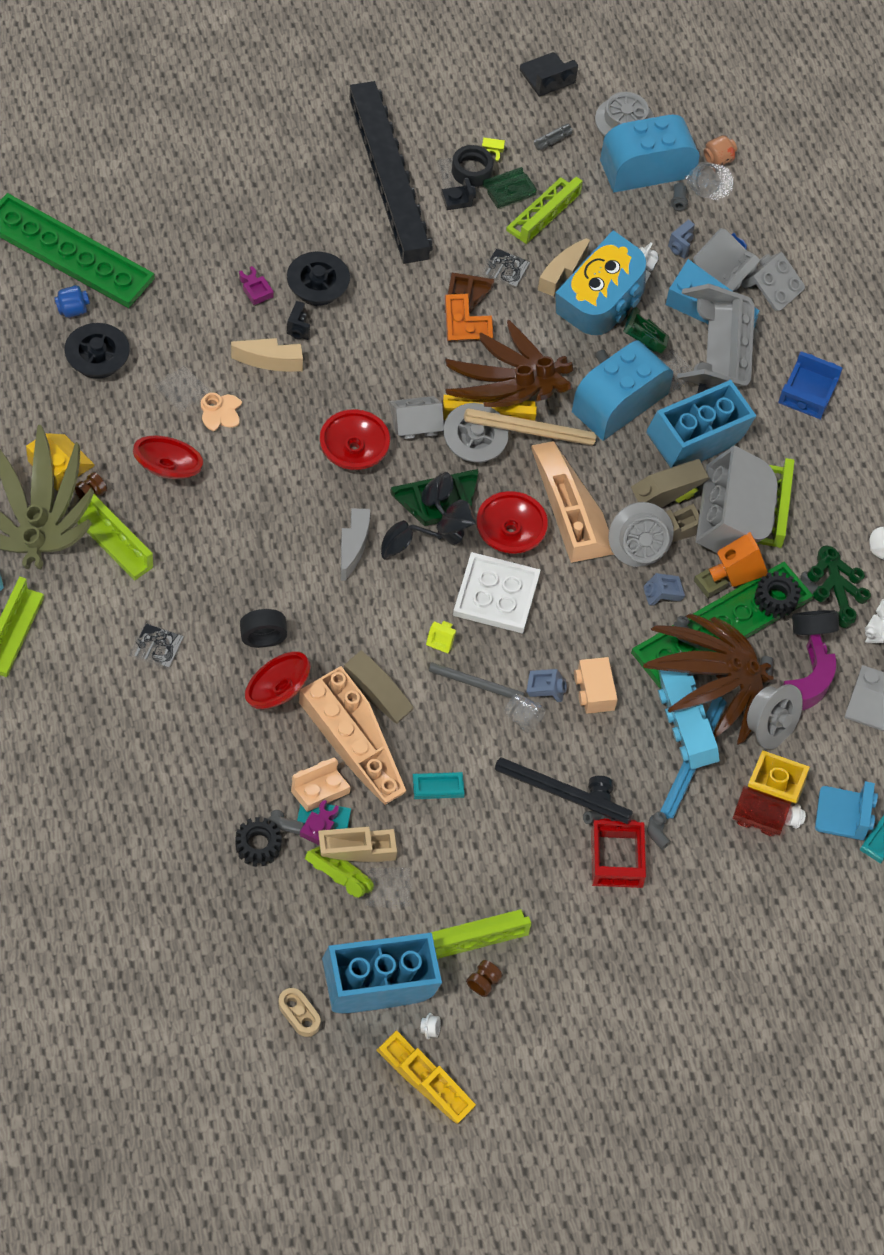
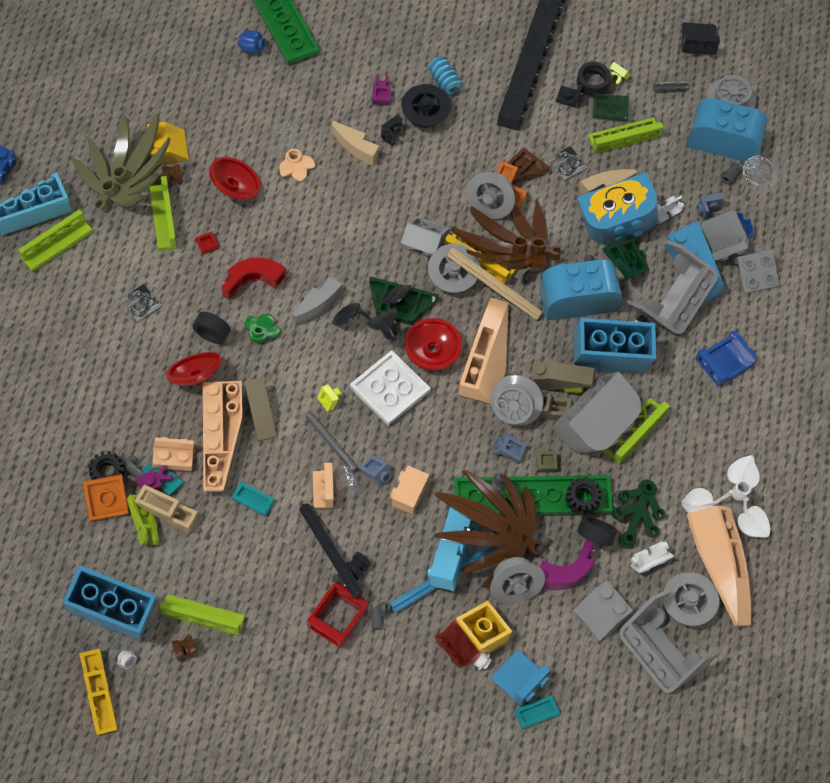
camera: 35 degrees right, 5 degrees up
(97, 350) = (242, 82): black wheel -> none
(183, 543) = (207, 243): none -> red tile
(261, 542) = (253, 269): none -> red arch
(281, 870) = (105, 497): none -> orange tile
(301, 1012) = (49, 599): tan plate -> none
(311, 237) = (445, 75): none -> medium azure piece
(312, 602) = (261, 328): none -> green plate
(358, 430) = (371, 222): red dish -> none
(460, 336) = (491, 194): none -> light grey wheel
(507, 730) = (323, 487): none -> light nougat bracket
(720, 150) = (785, 154): nougat head -> none
(740, 562) = (572, 458): orange torso -> none

